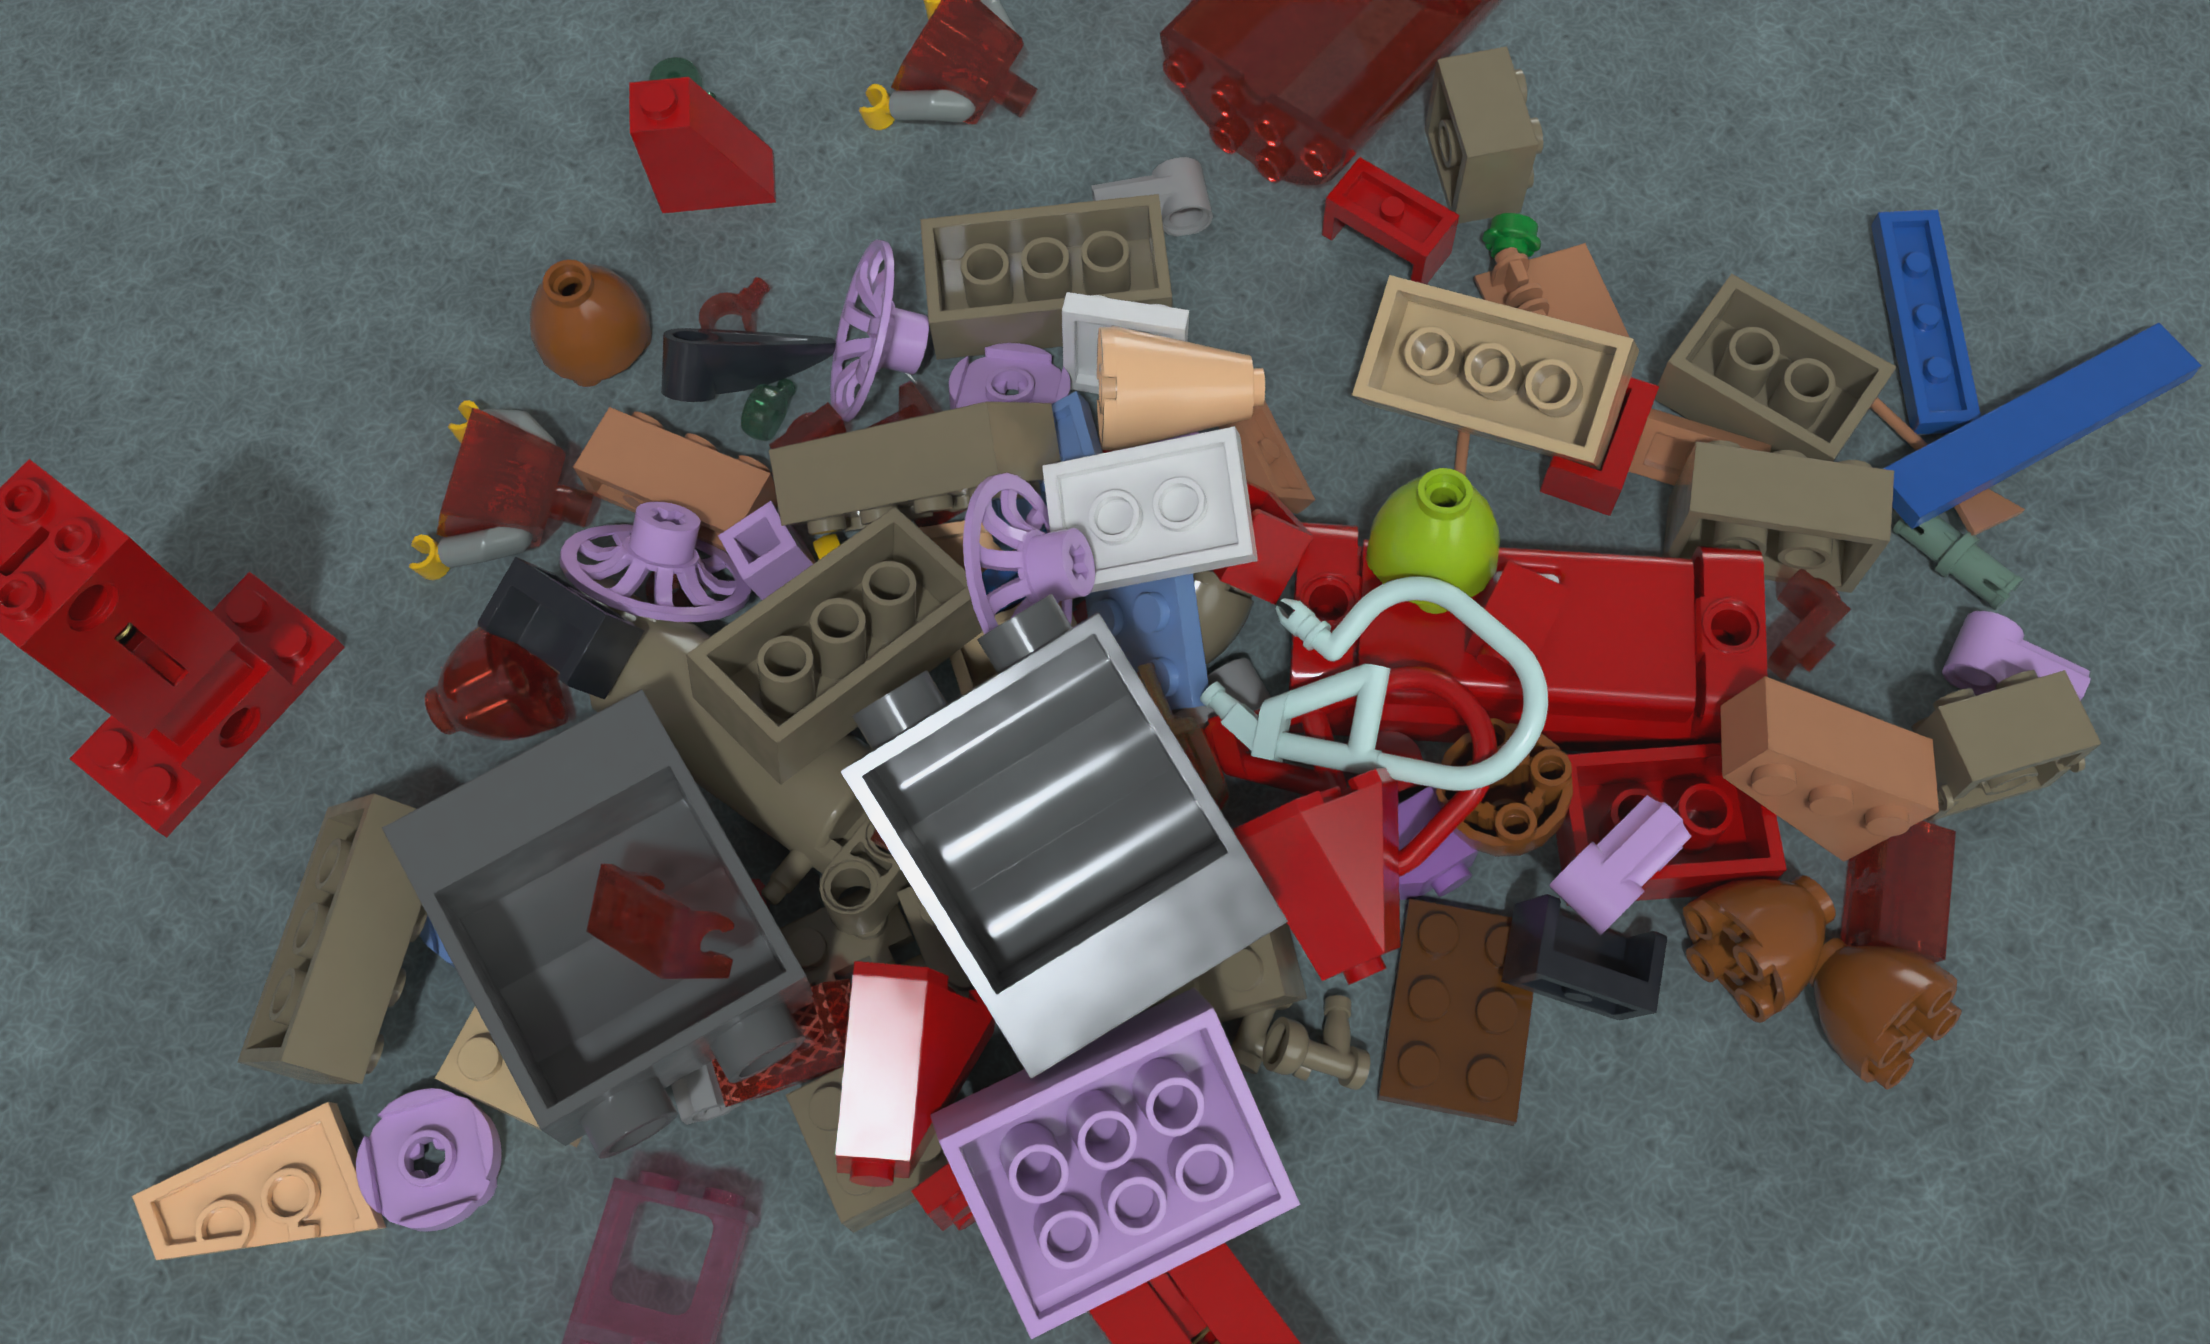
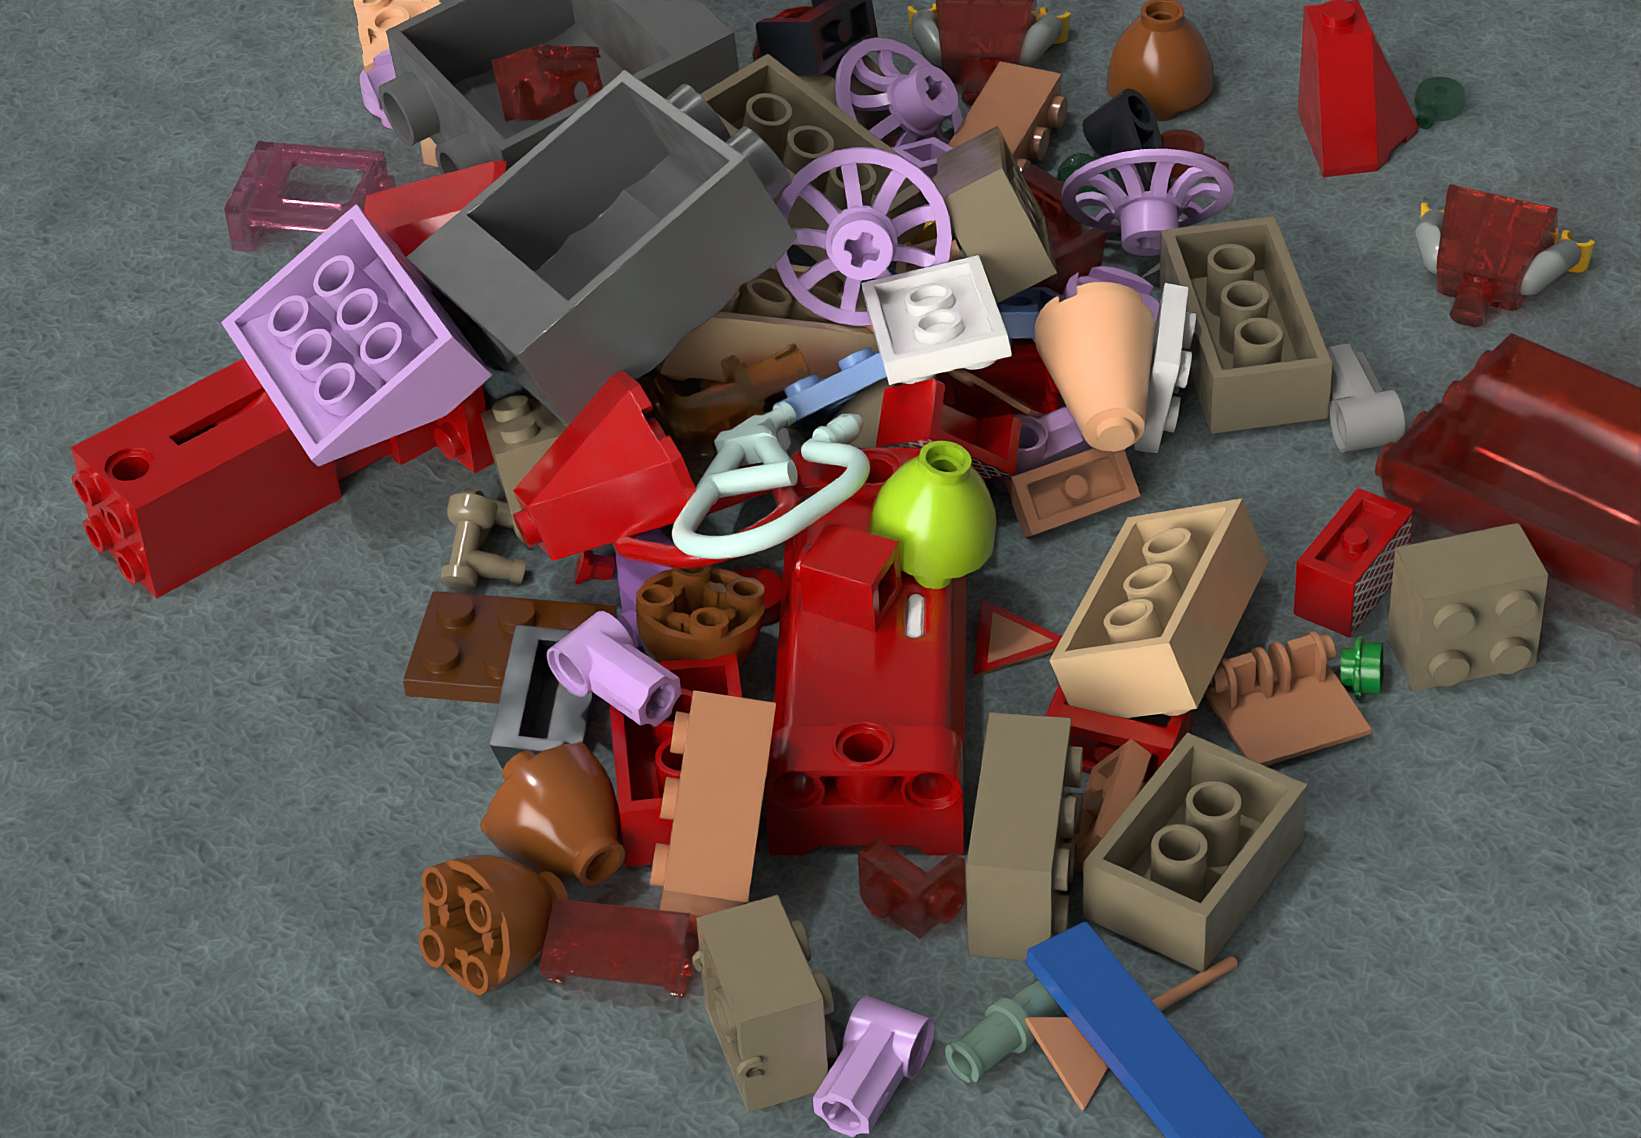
camera: 85 degrees right, 25 degrees down
(1925, 321) = (1316, 1010): blue plate -> none

